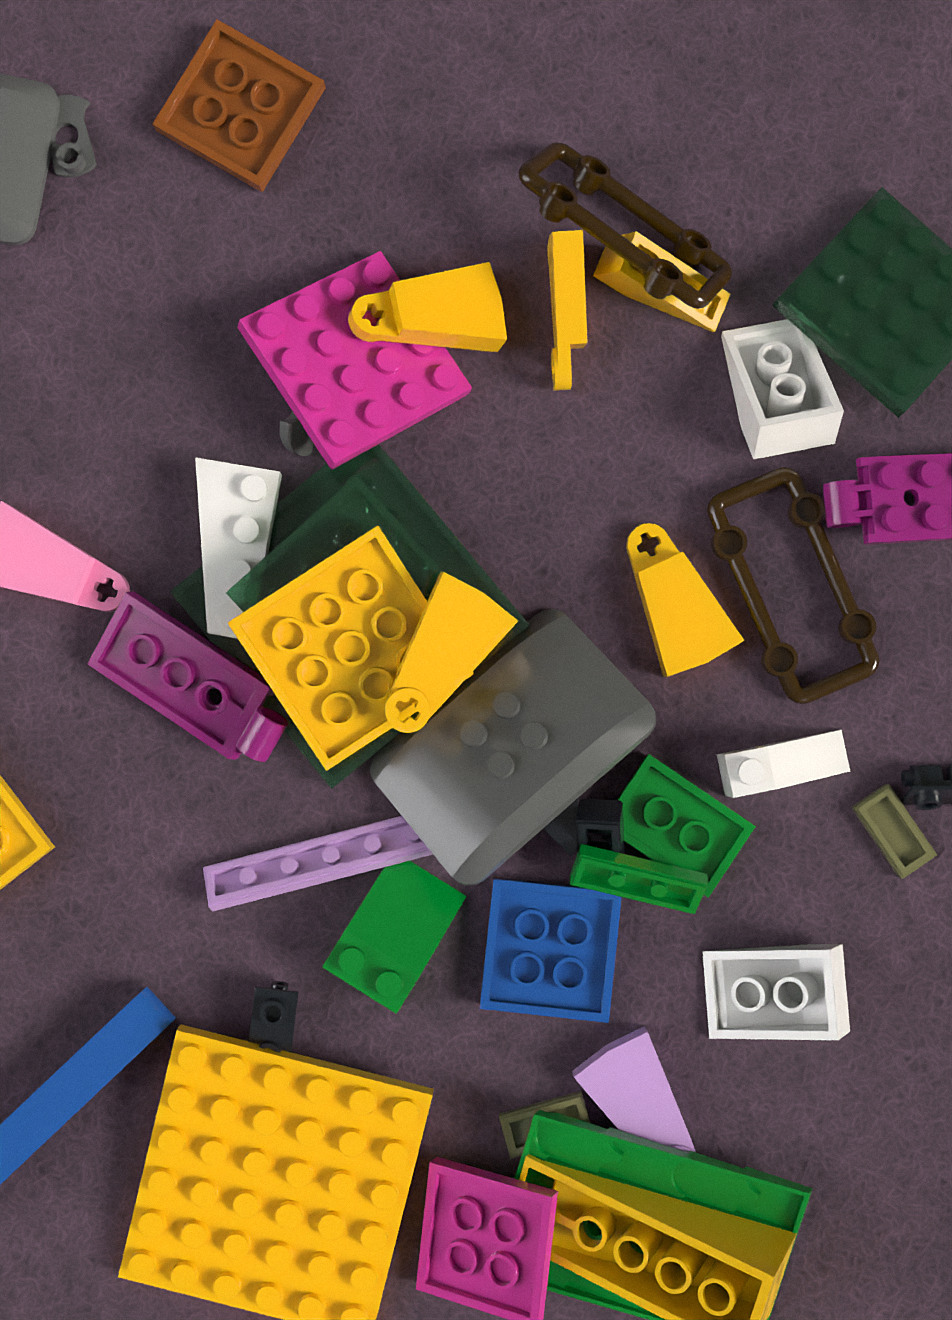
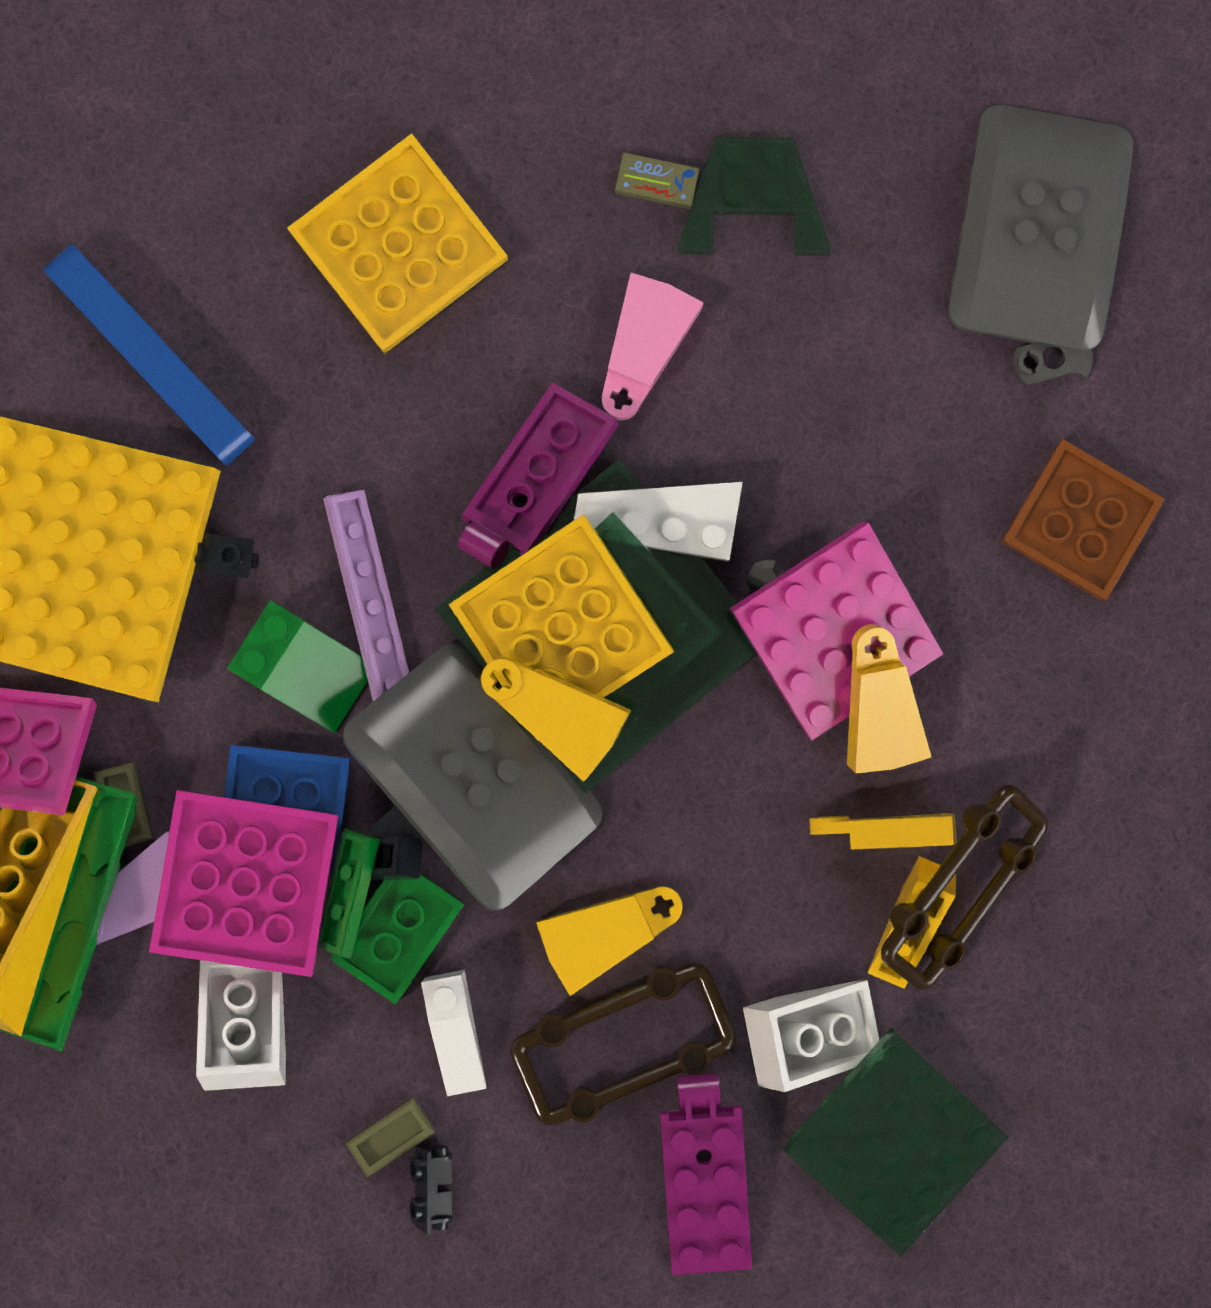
camera: 85 degrees right, 0 degrees up
(629, 991) = (244, 883): none -> dark pink plate

